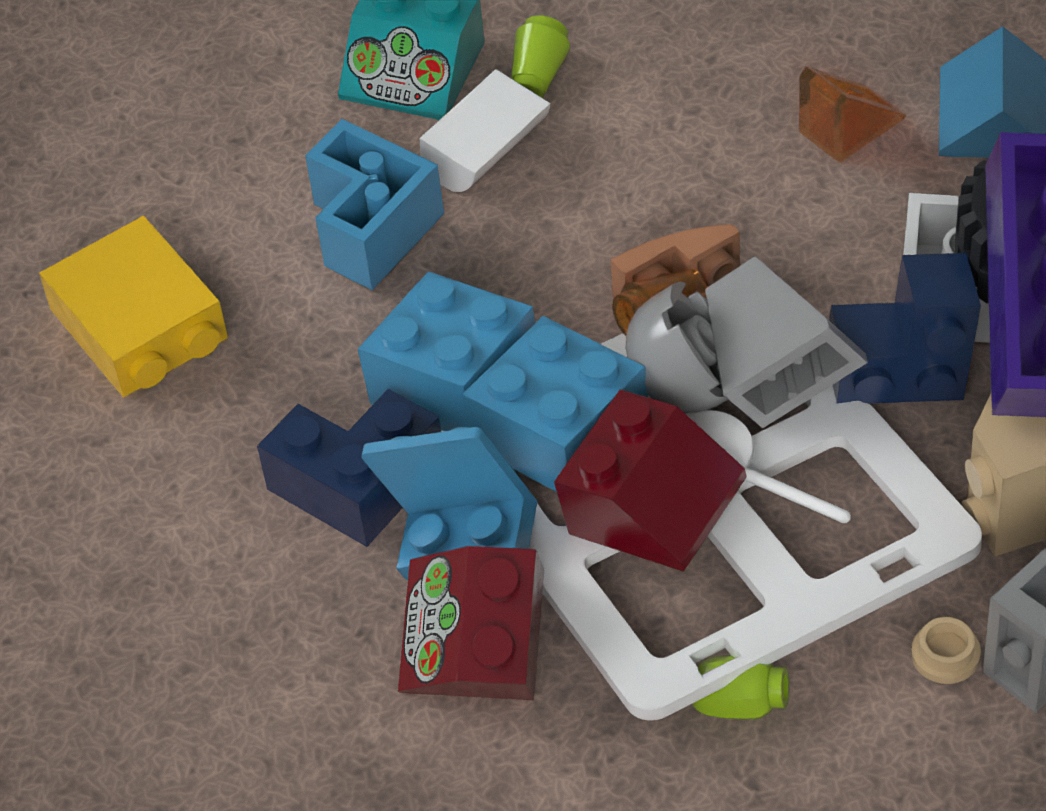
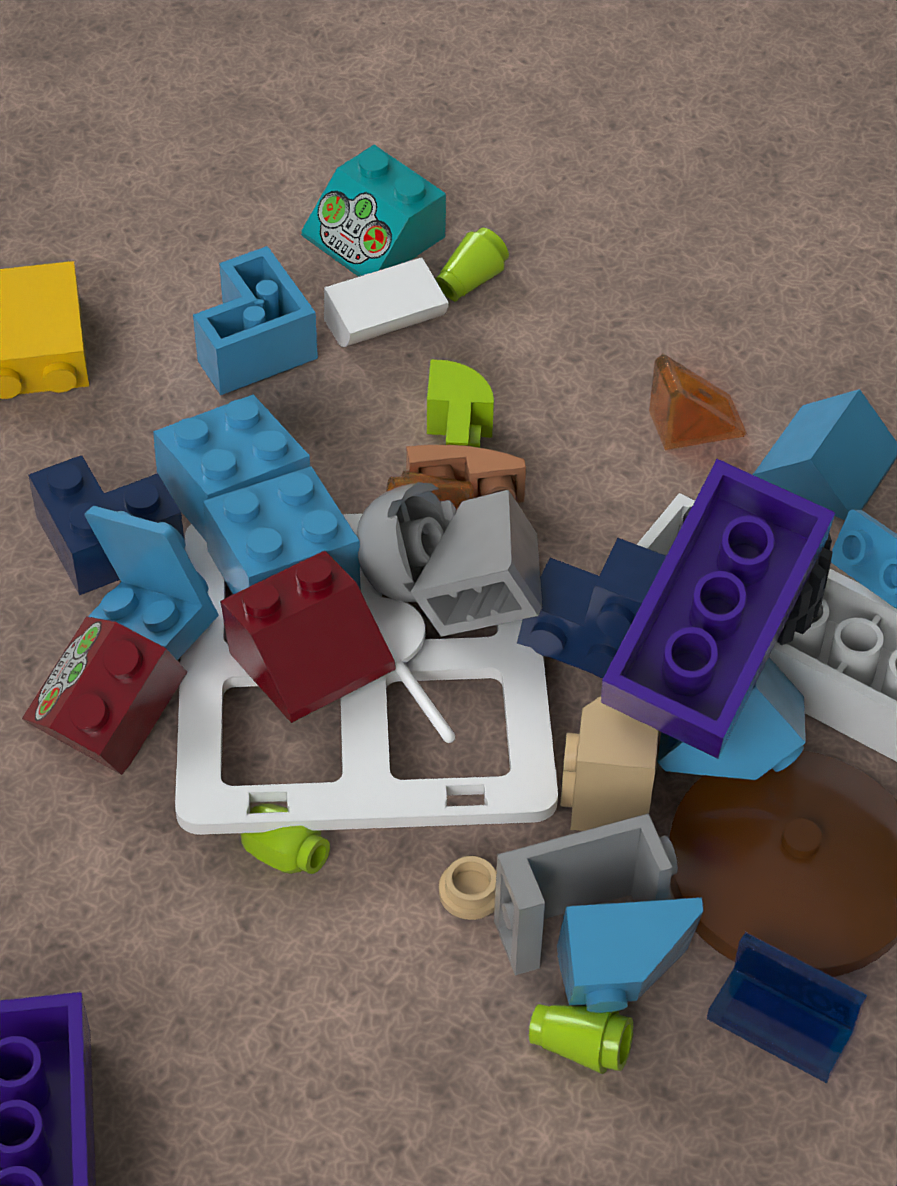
camera: 20 degrees right, 0 degrees up
(623, 200) = (459, 404): none -> lime brick

